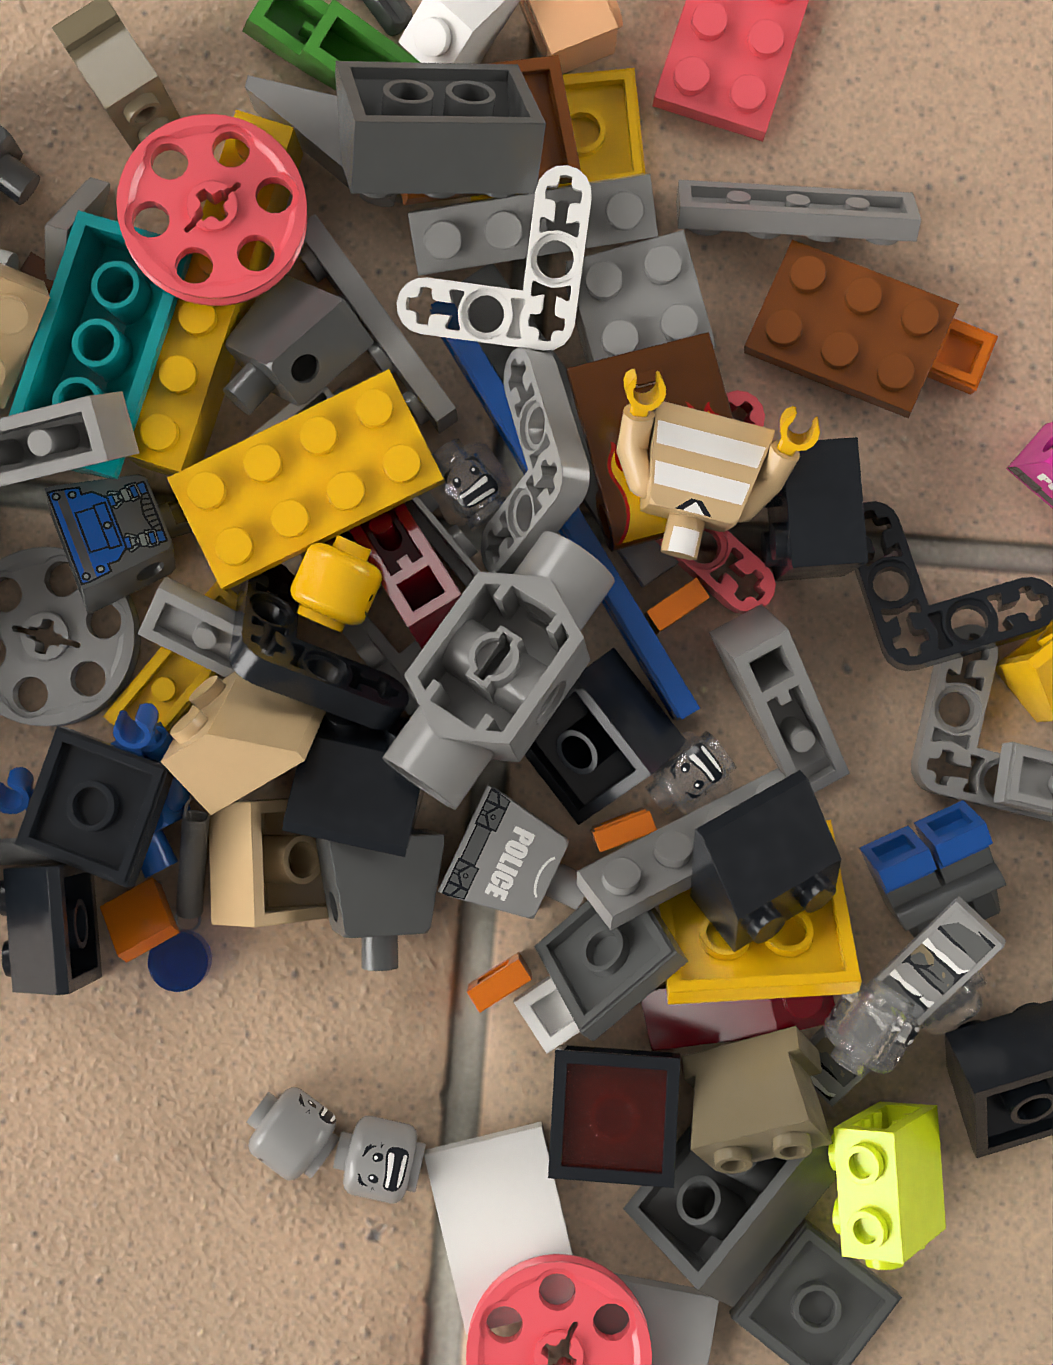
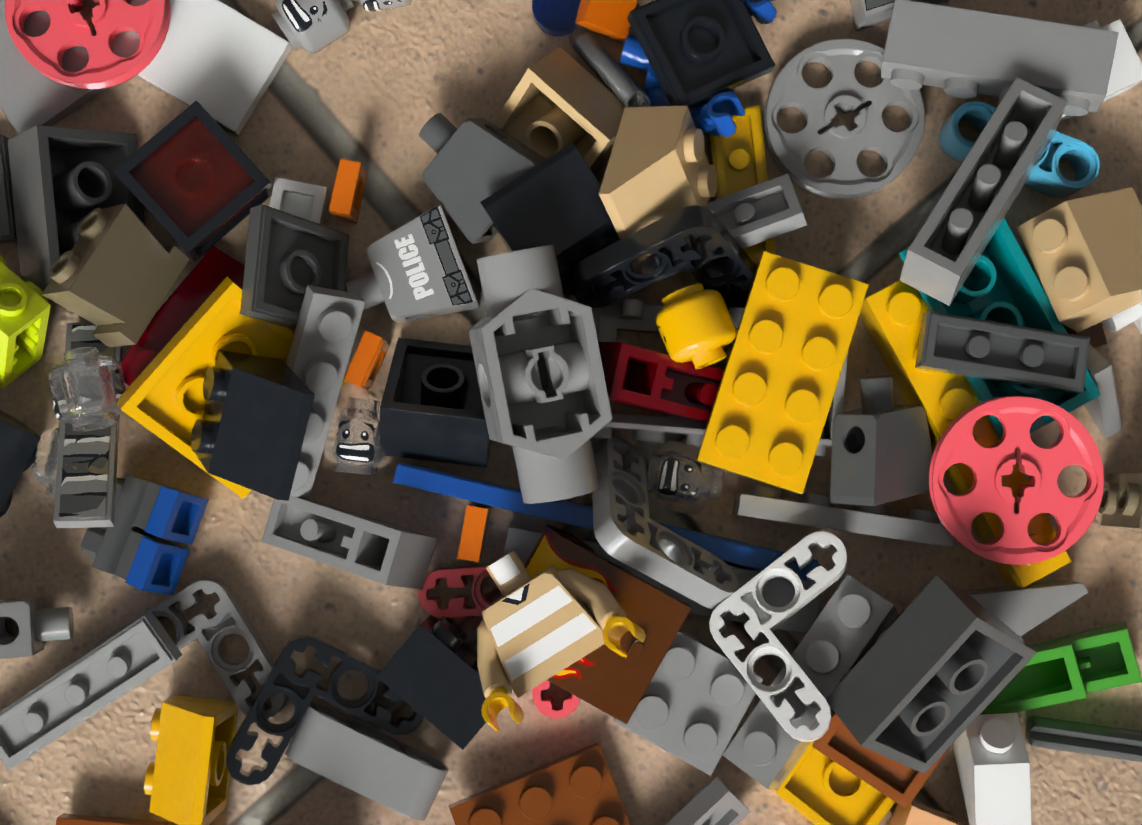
camera: 140 degrees right, 0 degrees up
(115, 536) = (865, 219): torso -> none
(119, 317) = (1002, 352): none -> dark grey tile
(938, 514) = (367, 761): none -> light grey beam

